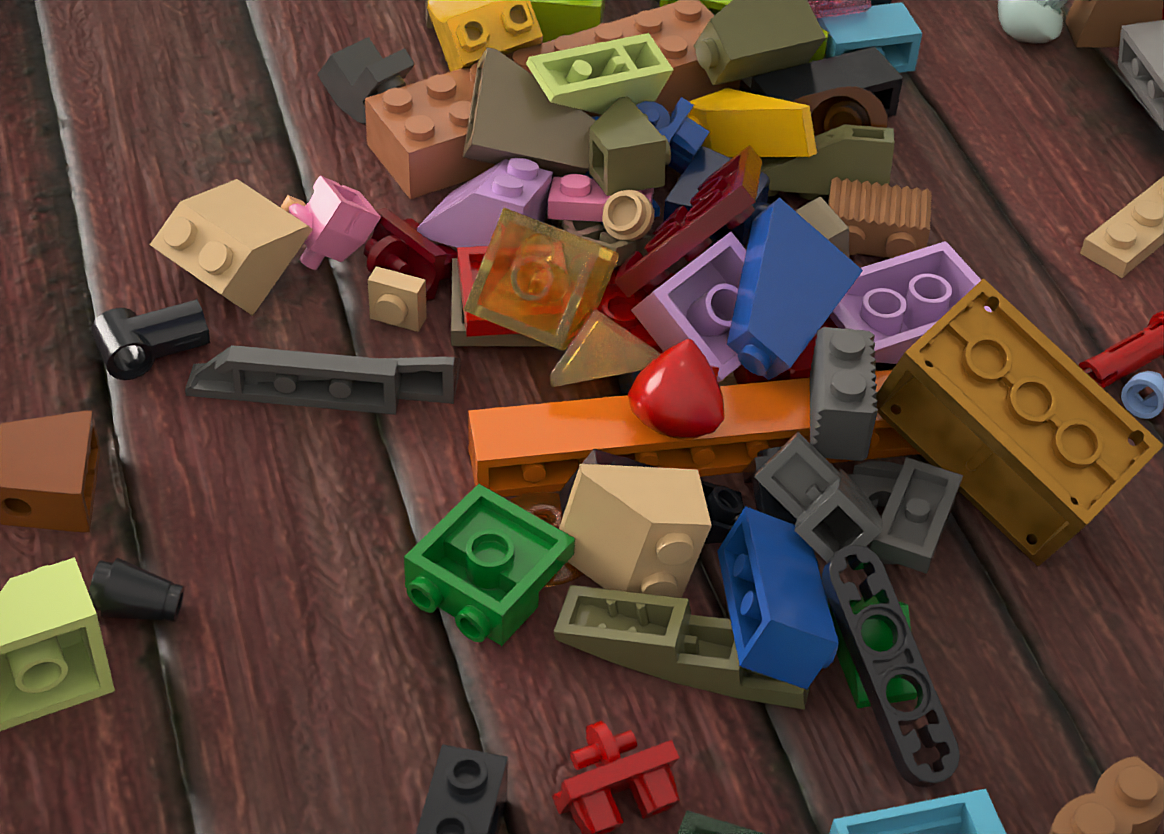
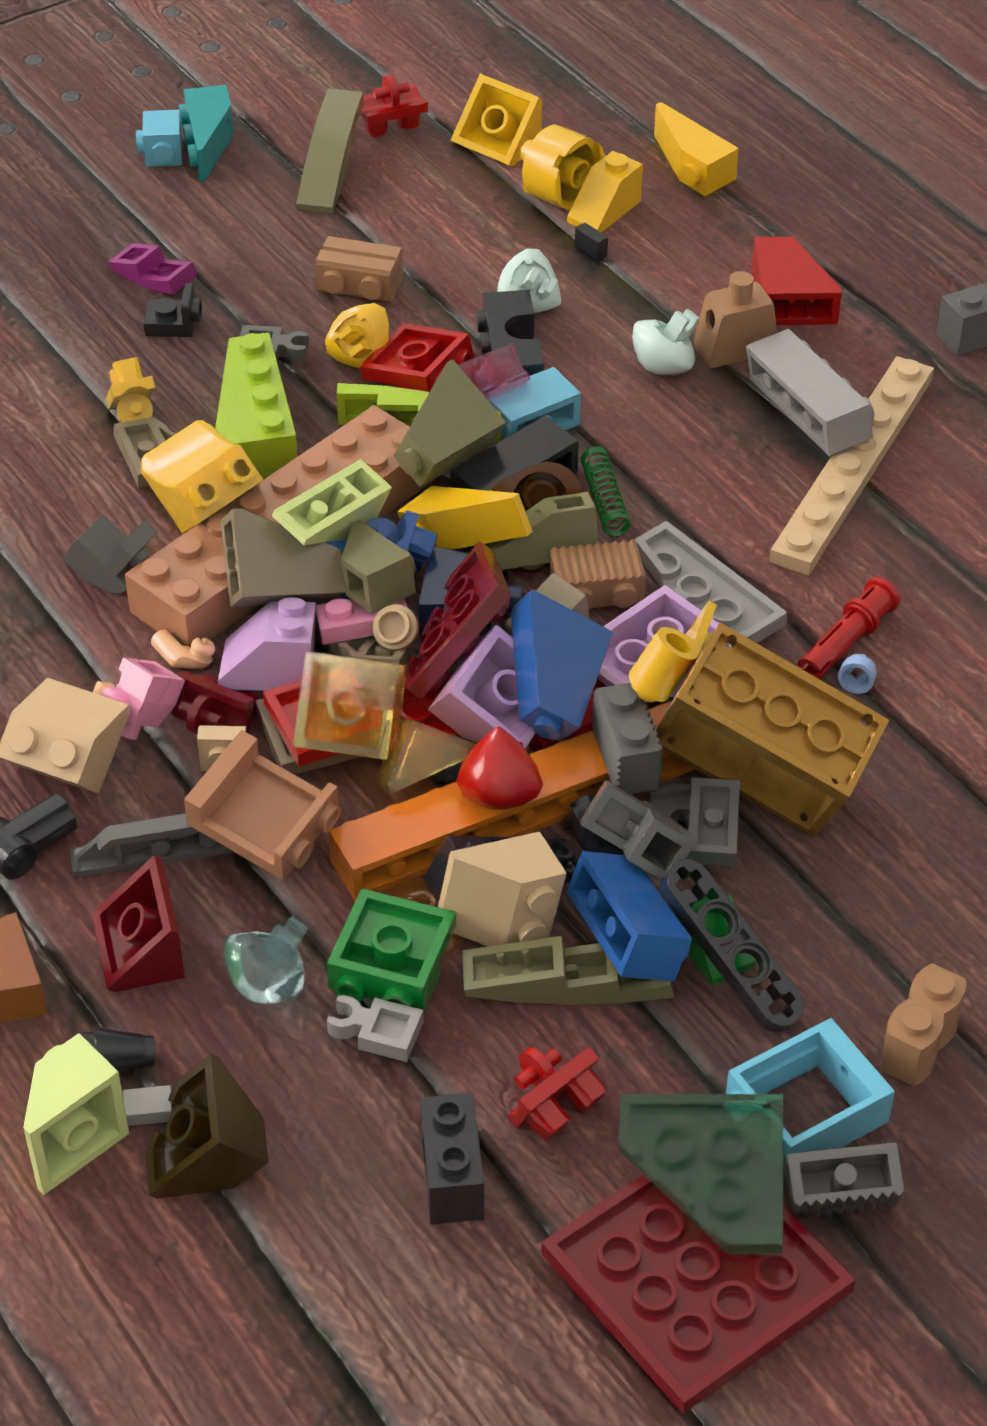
camera: 15 degrees left, 0 degrees up
(146, 665) = (147, 1105): none -> light grey piece
(193, 722) = (210, 1138): none -> dark brown slope
(224, 469) = (139, 931): none -> dark red slope
(342, 541) = (265, 964): none -> clear light blue piece
(399, 365) = (260, 808): none -> nougat panel
(409, 201) = (178, 656): none -> light nougat arm
(443, 651) = (382, 1030): none -> light grey plate
(911, 311) = (670, 658): none -> yellow door
(928, 163) = (604, 519): none -> green piece
(1002, 256) = (701, 577): none -> light grey wing

